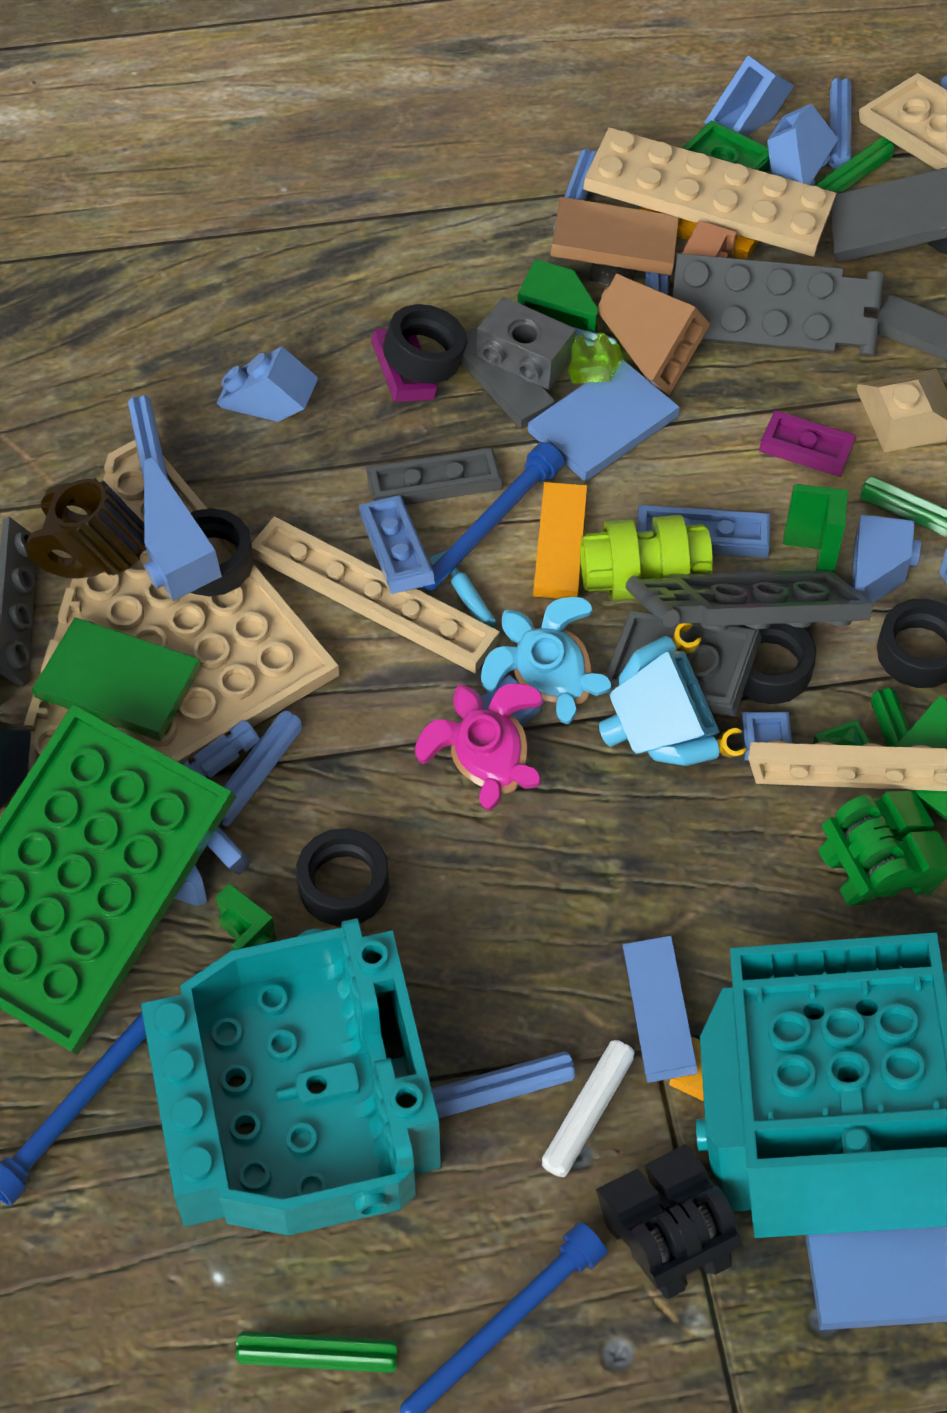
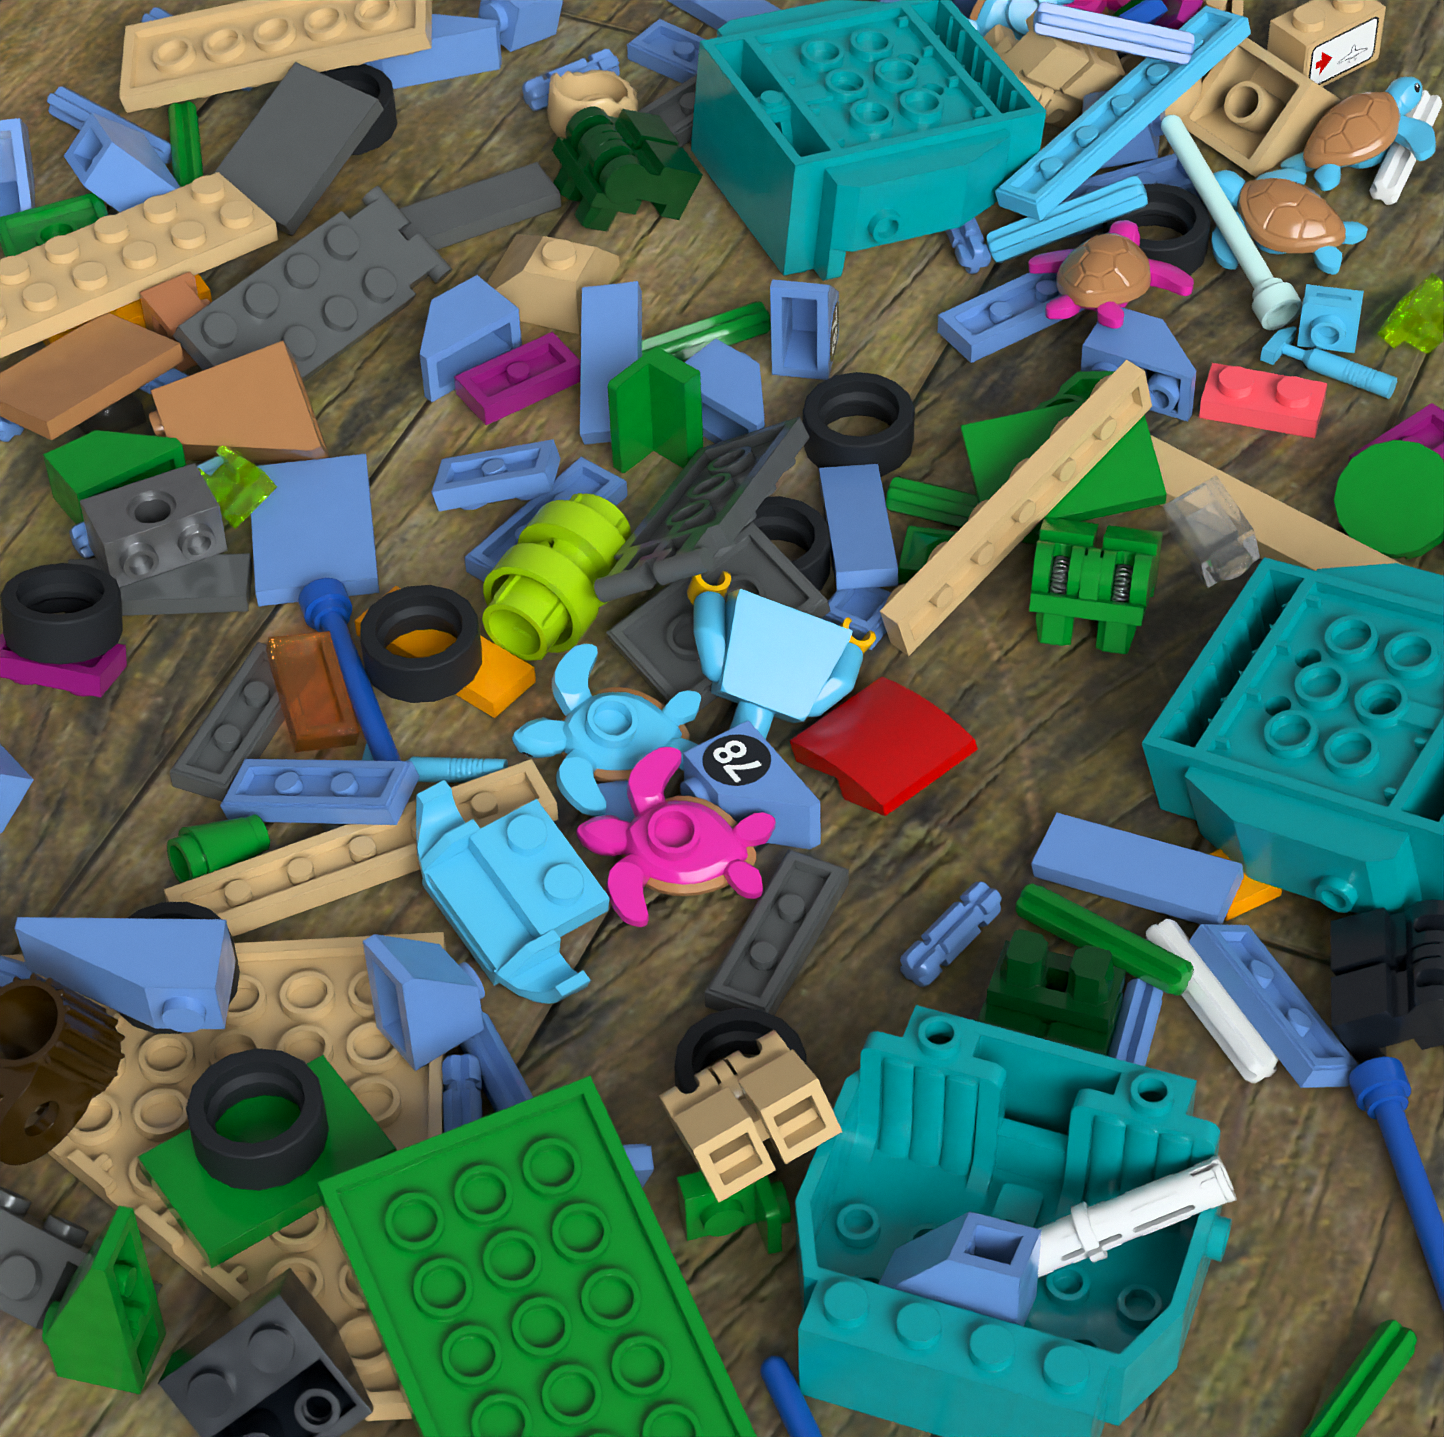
camera: 55 degrees left, 10 degrees down
(122, 683) = (248, 1076): none -> black tyre
(242, 1077) = (972, 1266): none -> medium blue slope
(259, 678) = (422, 997): none -> medium blue slope
(274, 890) = (745, 1104): none -> tan hips
(326, 522) = (216, 846): none -> green cone
(326, 1130) = (1138, 1212): none -> white pin
(389, 679) = (508, 892): none -> medium azure plate
(469, 838) = (778, 935): none -> dark grey tile
(472, 493) = (312, 691): none -> clear orange tile
(497, 997) = (1055, 994): none -> dark green hips
(536, 930) = (950, 934): none -> medium blue axle
(540, 496) = (426, 677): none -> black tyre
(563, 754) = (749, 777): none -> medium blue slope
(587, 1019) = (1085, 928): none -> green axle
(605, 1145) = (1274, 1005): none -> medium blue tile
(658, 809) = (884, 745): none -> red slope
(711, 480) = (496, 476): none -> medium blue plate
(814, 391) = (464, 331): none -> medium blue slope
(830, 692) = (858, 527): none -> medium blue tile
(871, 467) = (608, 346): none -> medium blue tile

